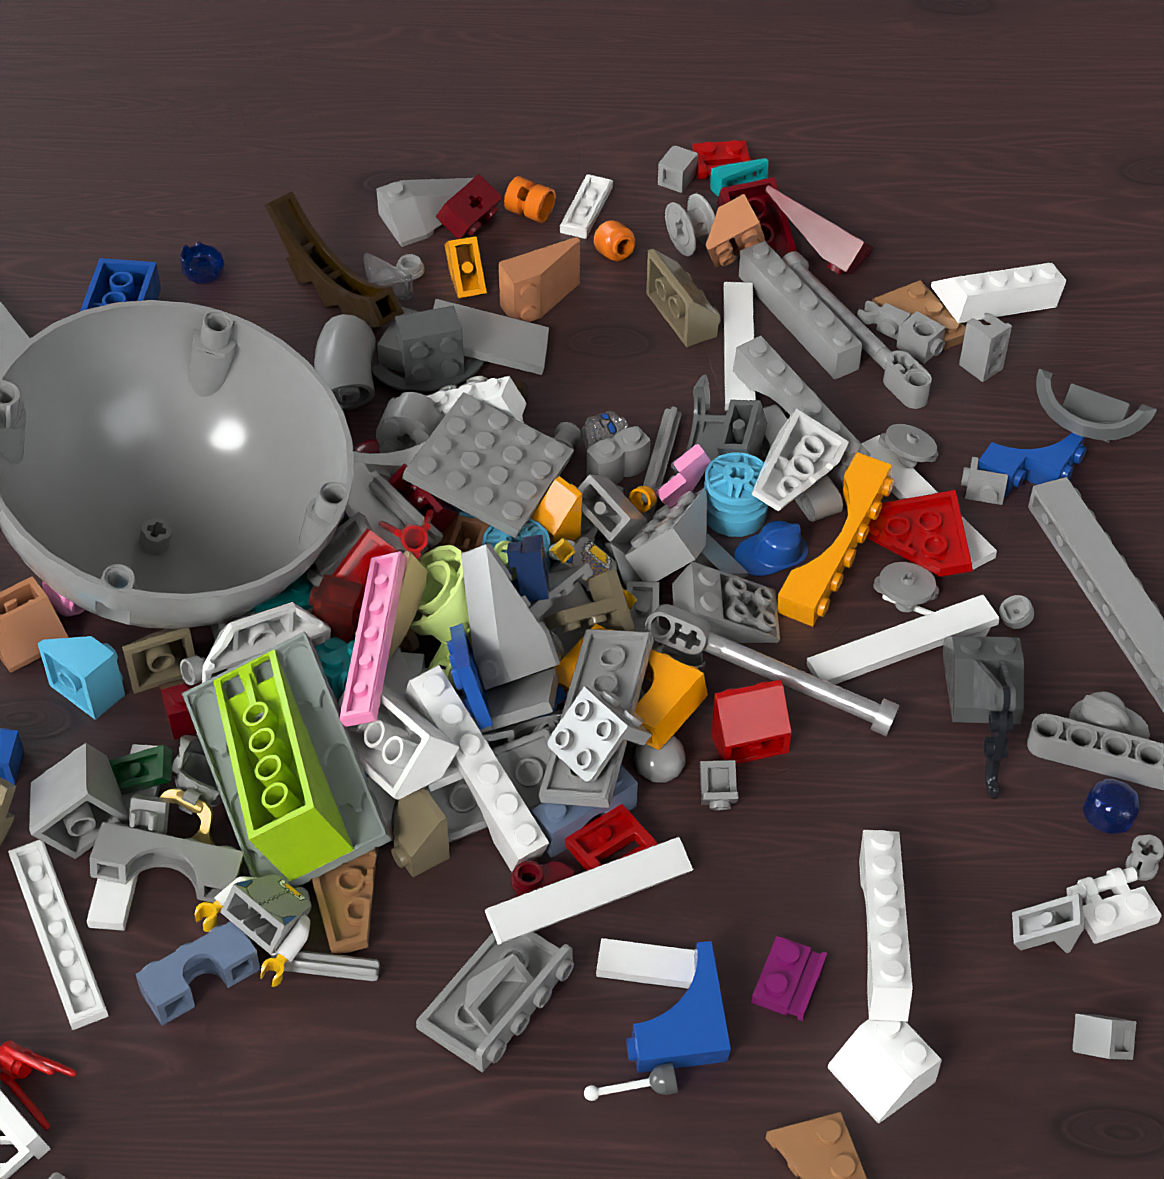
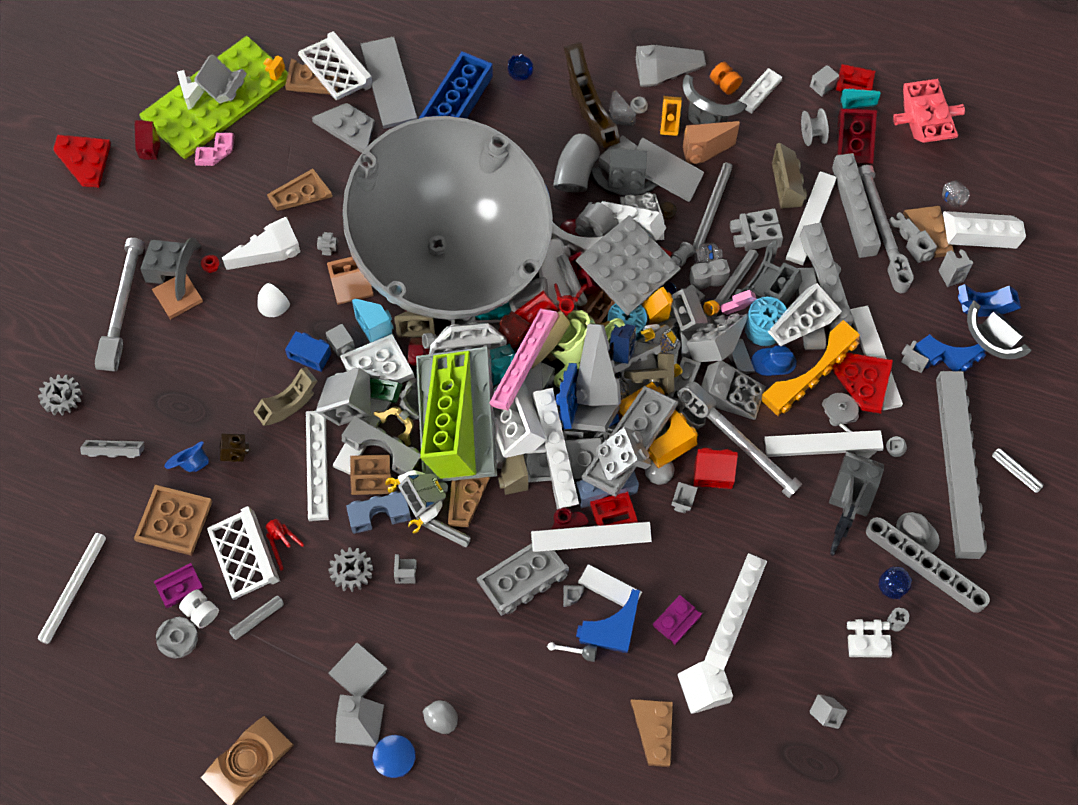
camera: 20 degrees right, 15 degrees up
(36, 722) = (340, 340): none -> light grey brick
(117, 728) = (381, 360): none -> white plate
(149, 813) = (379, 417): light grey tile -> none
(159, 915) = (369, 474): none -> medium nougat slope
(179, 1081) = (351, 560): none -> light grey gear
(280, 1054) = (404, 570): none -> light grey panel
(469, 207) = (695, 68): dark red brick -> none
(495, 991) = (521, 577): light grey slope -> none
(519, 236) = (706, 111): none -> dark grey piece
(581, 366) = (712, 205): none -> light grey axle
(592, 997) = (572, 594): none -> light grey tile
(614, 240) = (765, 122): orange head -> none
(663, 379) = (756, 229): none -> light grey hips
(732, 231) = (836, 141): nougat slope -> none
(830, 241) = (896, 166): wedge -> none
(846, 167) = (928, 112): none -> coral slope
(910, 444) = (882, 318): light grey piece -> none
(936, 258) = (955, 193): none -> clear head
(1048, 922) = (826, 639): light grey slope -> none
(1073, 368) = (1002, 300): none -> blue arch

